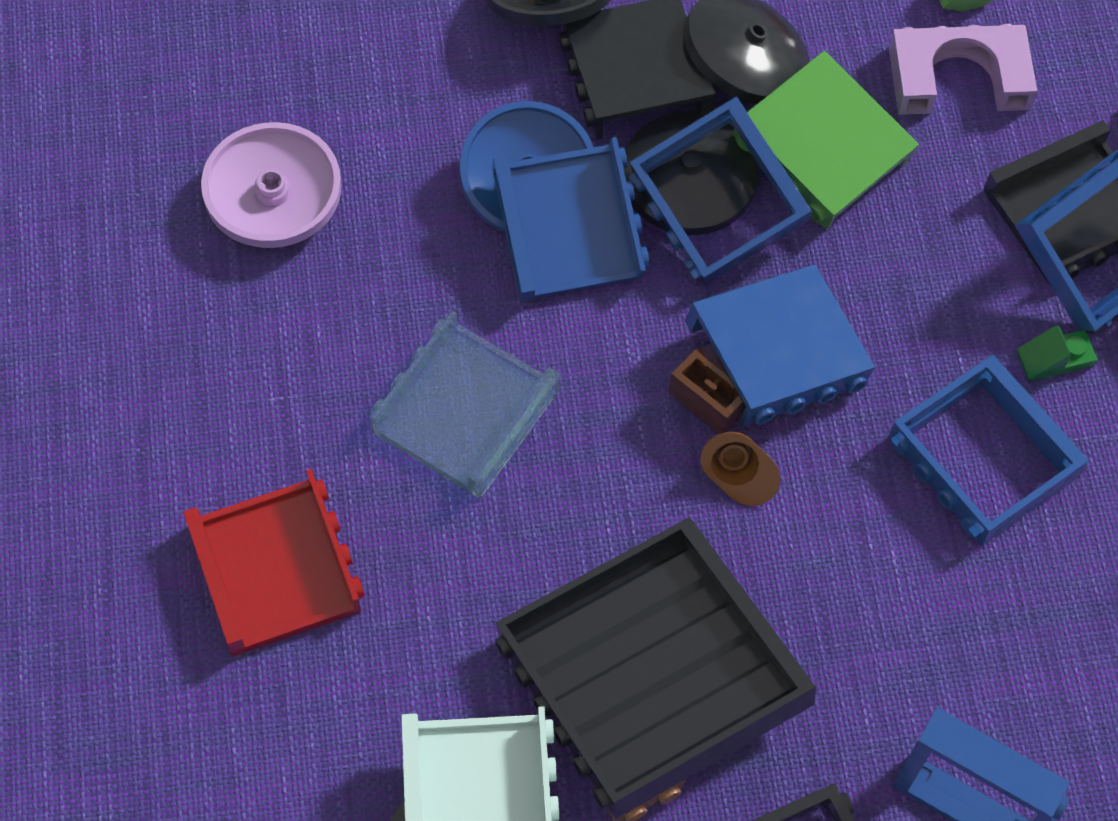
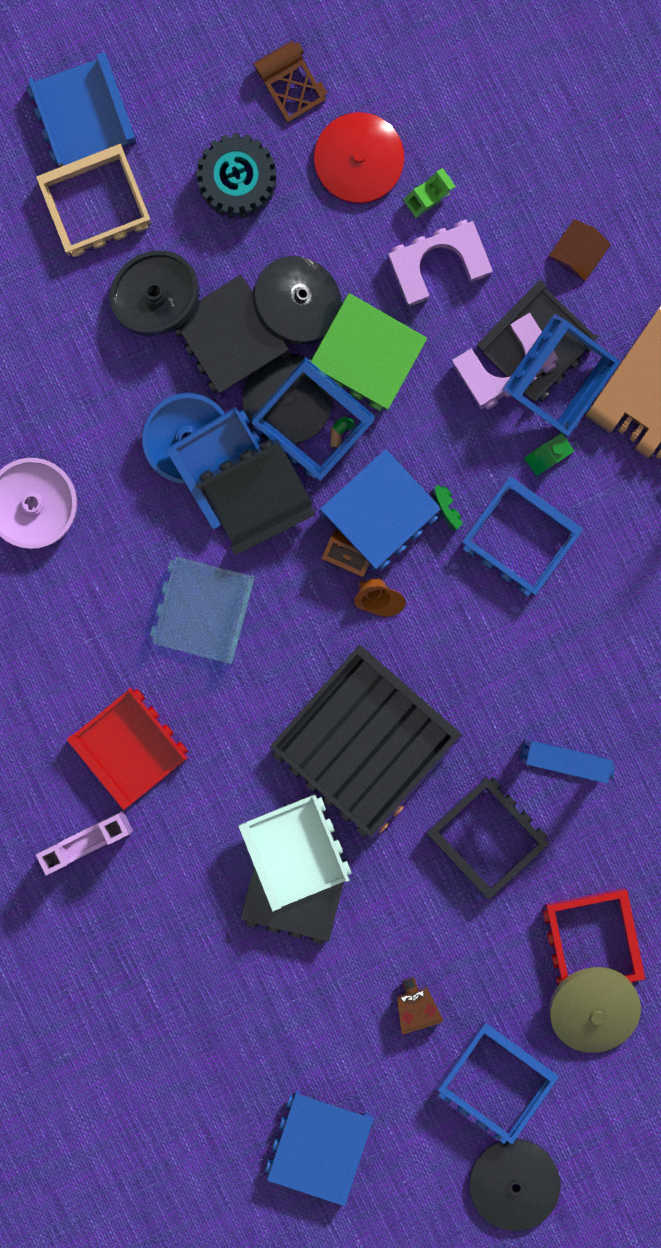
camera: 15 degrees left, 25 degrees up
(100, 682) = (84, 842): none -> lavender arch
(602, 263) = (257, 495): none -> black panel
(751, 229) = (338, 429): none -> arm
(883, 389) = (443, 498): none -> green slope
(992, 235) = (487, 388): none -> lavender arch

